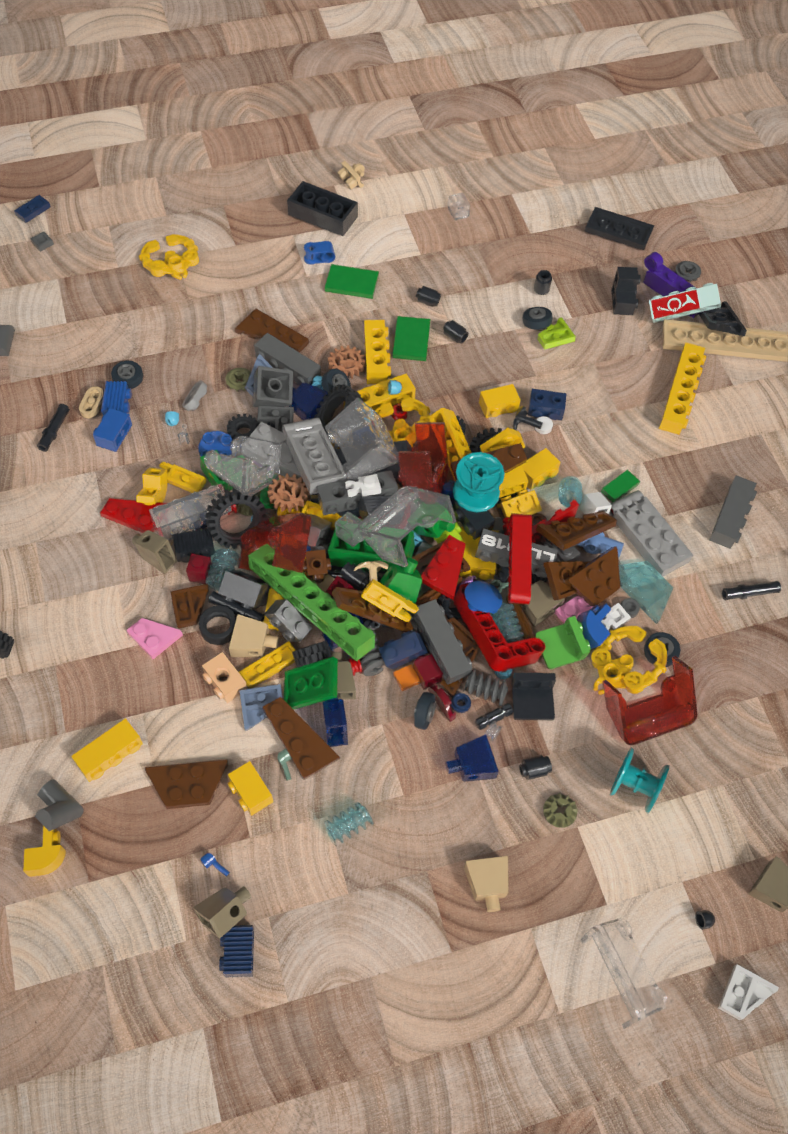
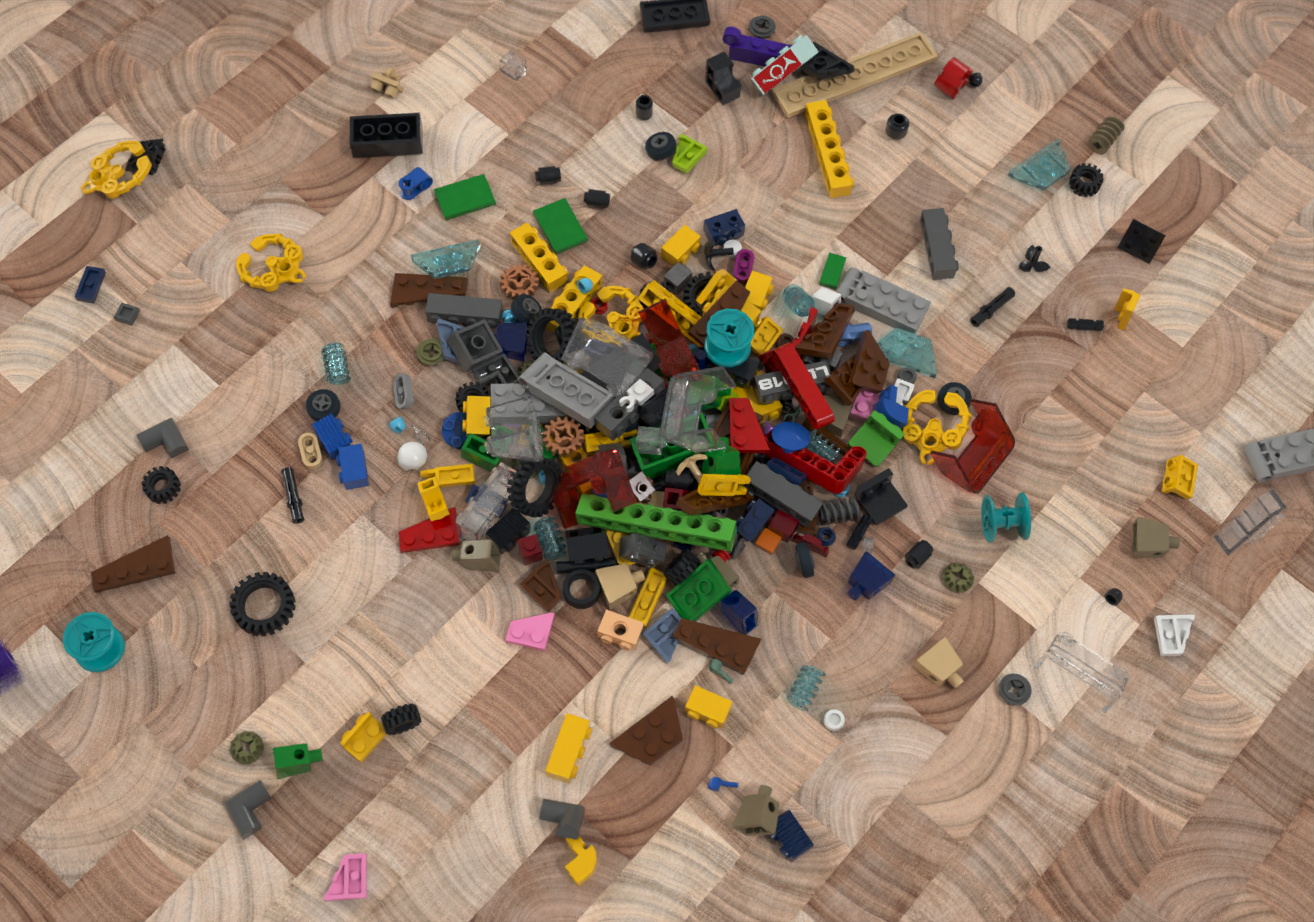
camera: 30 degrees left, 5 degrees up
(103, 140) = (104, 176): none -> yellow piece
(141, 145) = (153, 150): none -> black hinge
(159, 349) = (335, 364): none -> clear light blue piece
(165, 447) = (412, 456): none -> white hair
(231, 432) = (475, 411): none -> yellow brick
(304, 318) = (448, 259): none -> clear light blue wing
(355, 870) = (834, 720): none -> white tile
(460, 625) = (790, 473): none -> dark blue plate
(462, 392) = (643, 256): none -> black head
(477, 422) = (677, 278): none -> flat silver brick
(540, 441) = (742, 267): none -> magenta plate
(554, 942) = (1017, 681): none -> dark grey gear
(757, 398) = (897, 126): none -> black head

